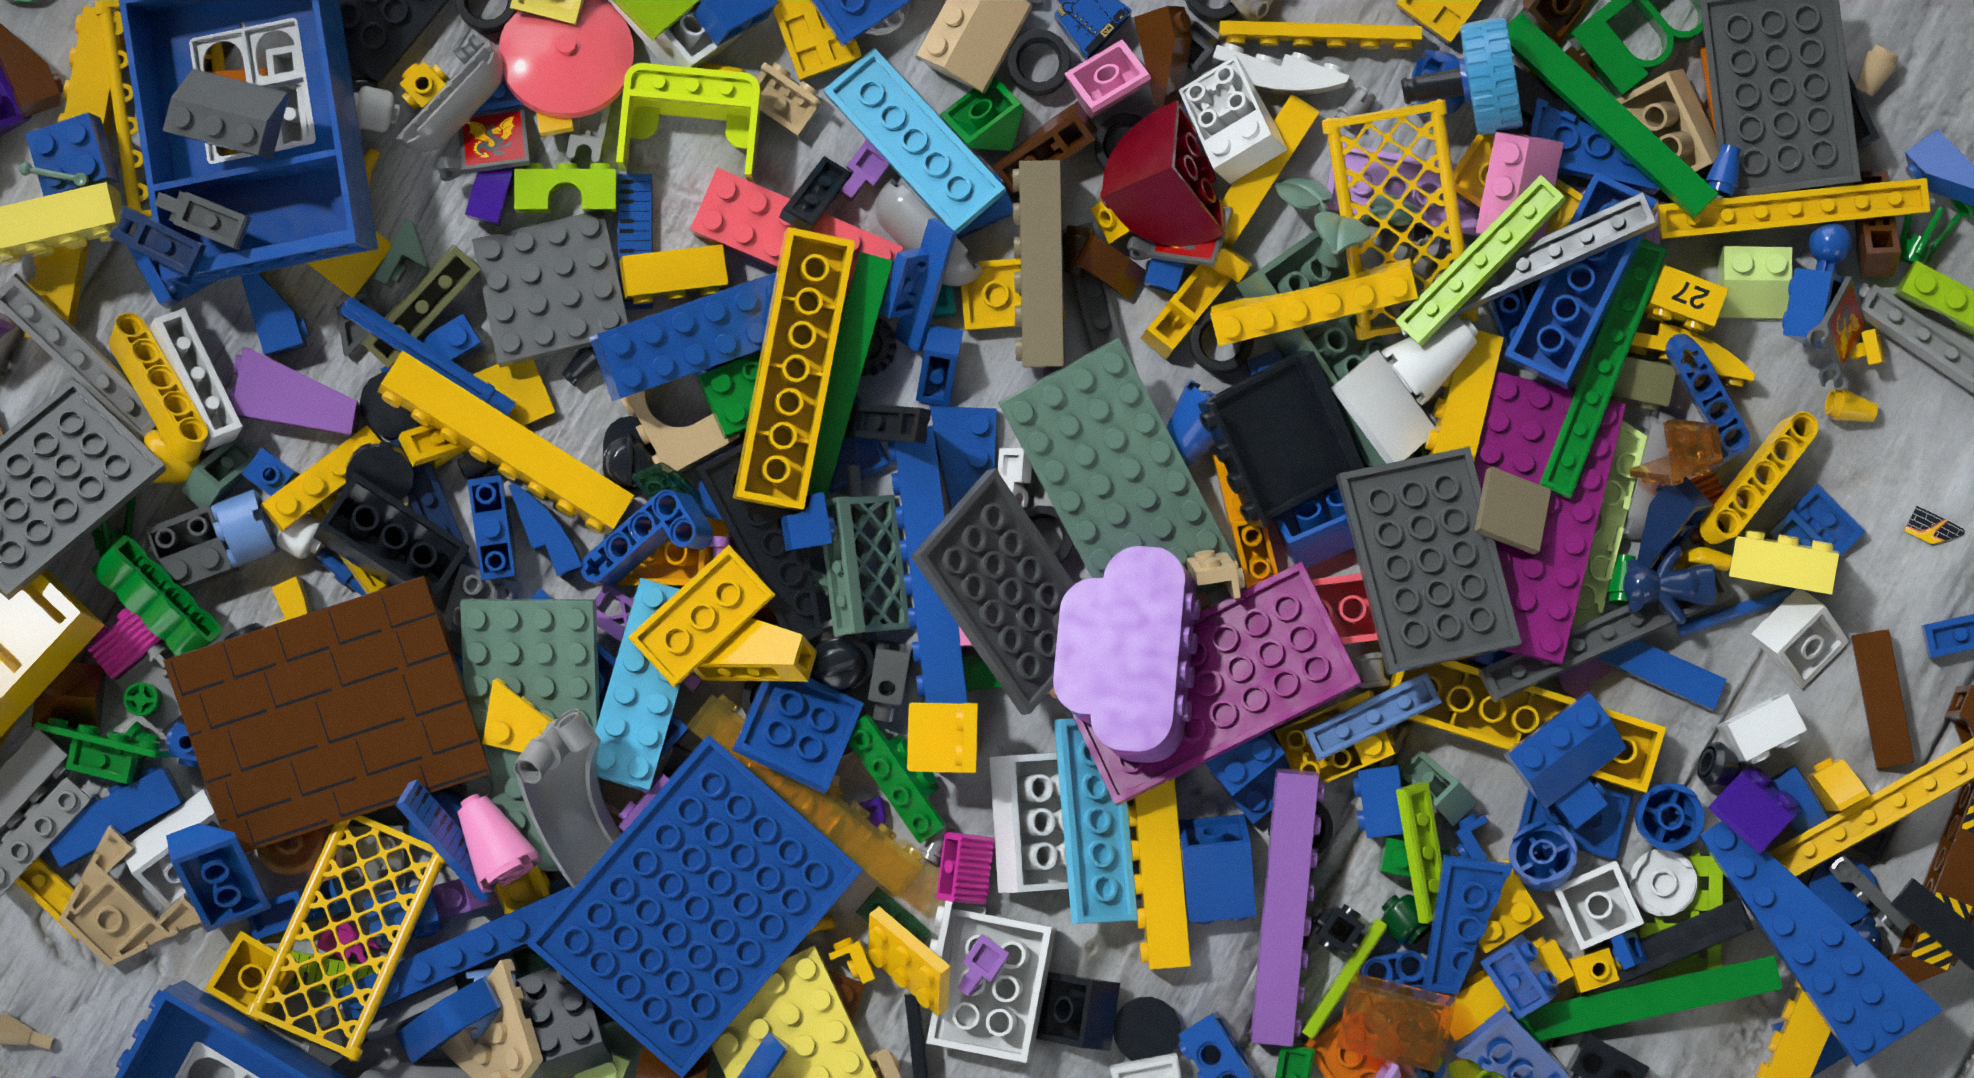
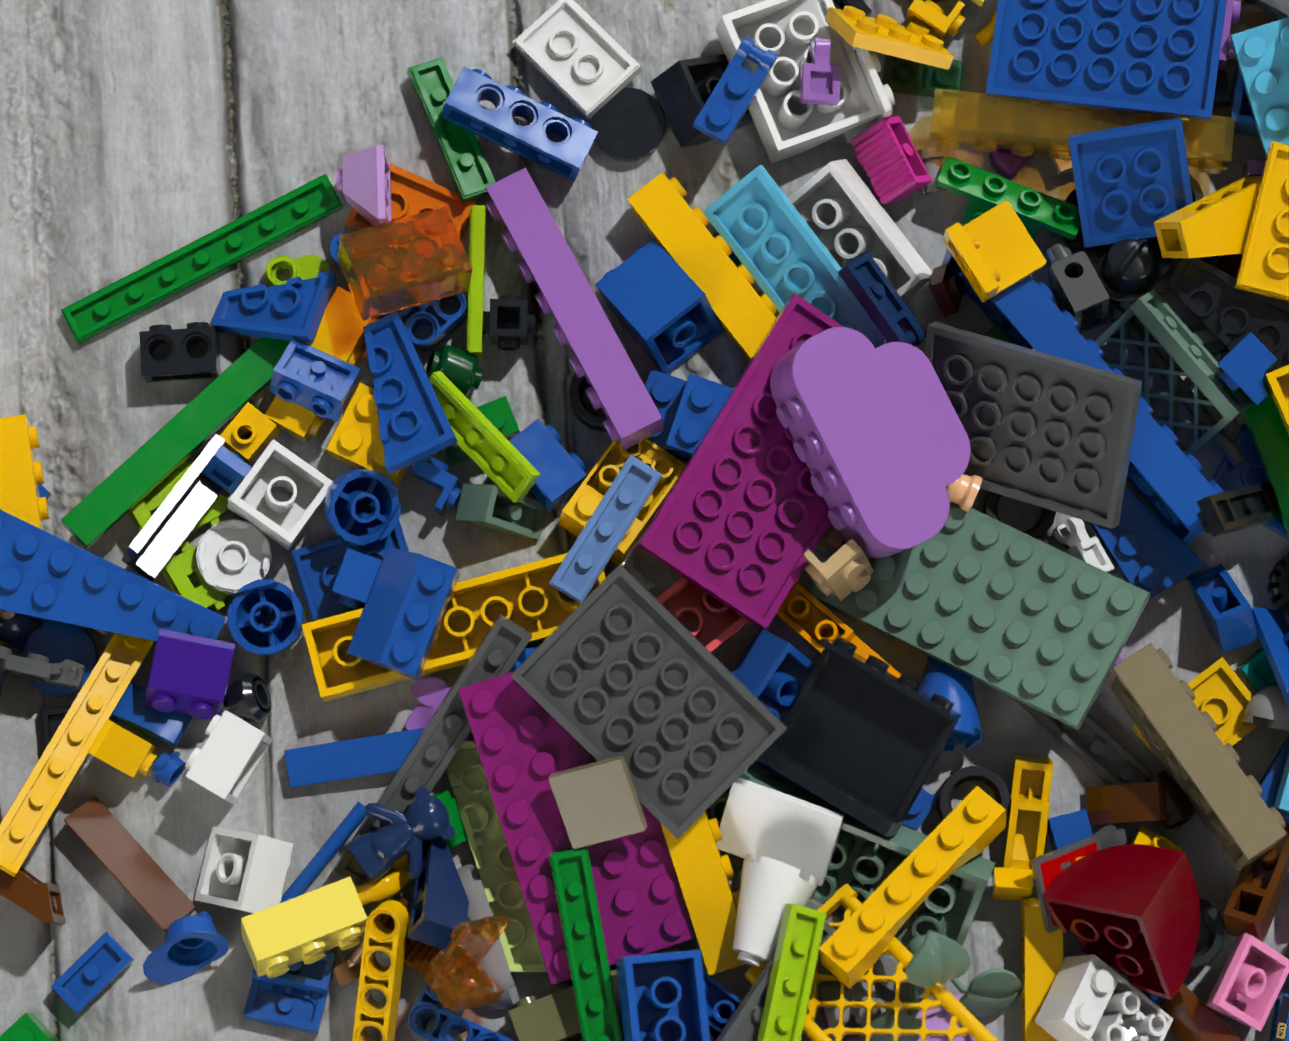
camera: 150 degrees right, 5 degrees down
(990, 739) = (946, 289): none -> reddish brown plate
(1050, 755) = (882, 301): none -> dark blue plate
(1056, 994) = (734, 92): none -> blue plate
(1080, 571) = (964, 491): none -> light nougat wheel
(1767, 514) = (346, 971): none -> medium nougat hand
(1809, 752) = (168, 768): none -> blue plate
(1878, 607) = (187, 948): none -> blue piece

